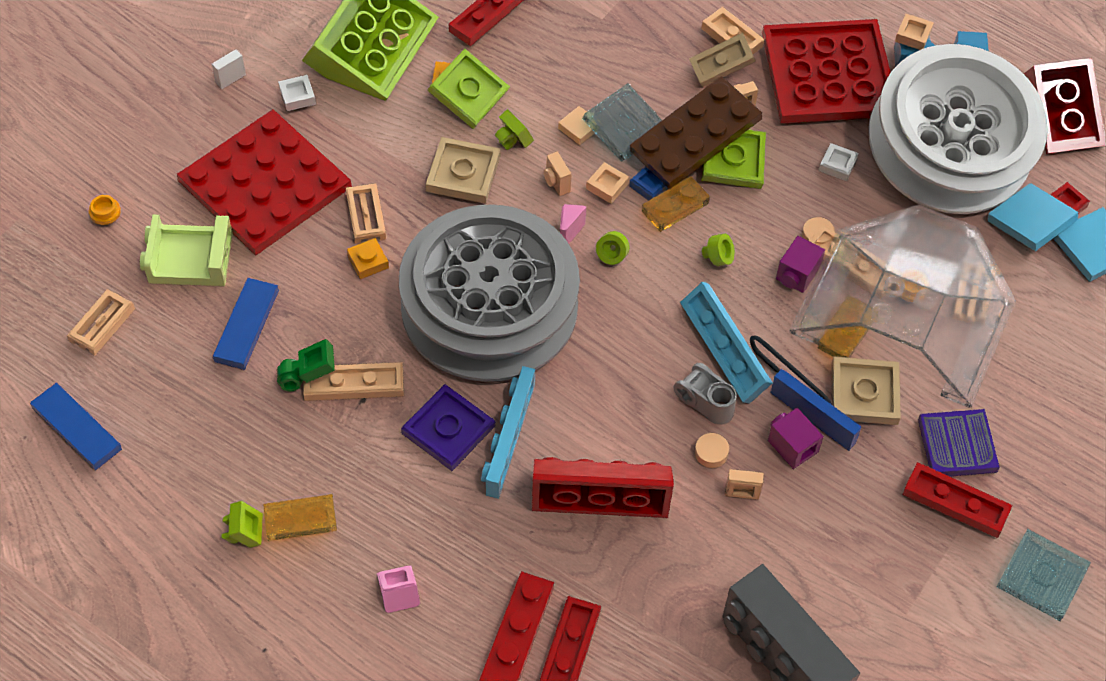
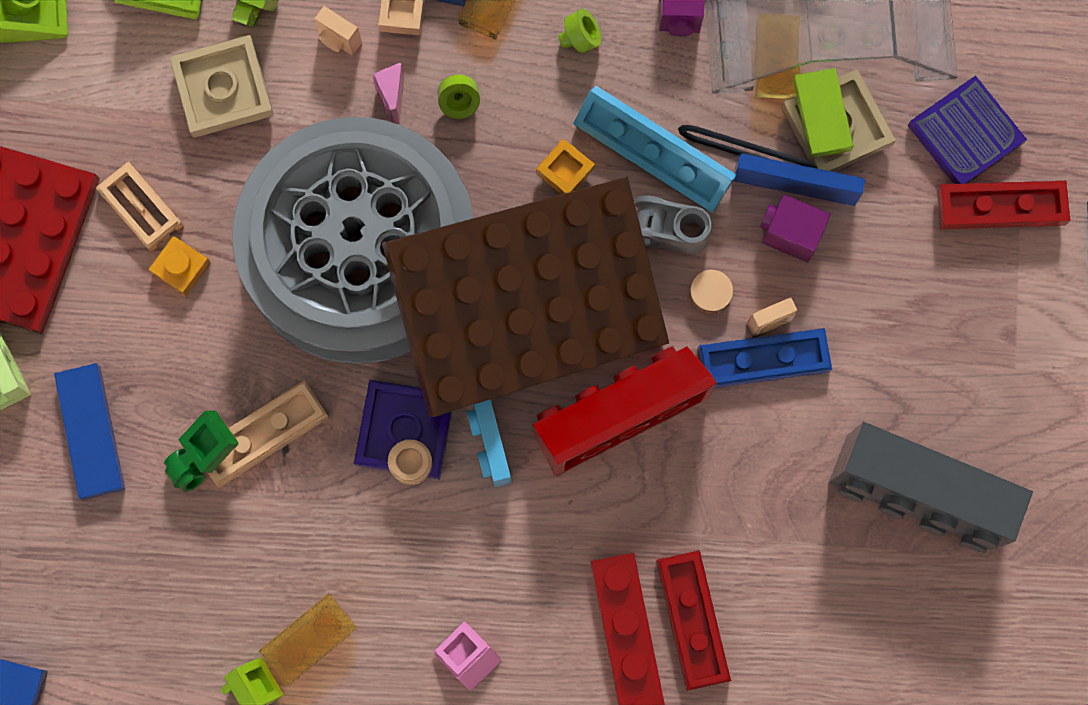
camera: 30 degrees left, 20 degrees up
(438, 444) = (410, 462): none -> light nougat tile
(580, 373) = (525, 295): none -> reddish brown plate
(657, 325) = (565, 168): none -> light orange plate
(724, 511) = (767, 358): none -> blue tile
(856, 374) = (822, 113): none -> lime tile

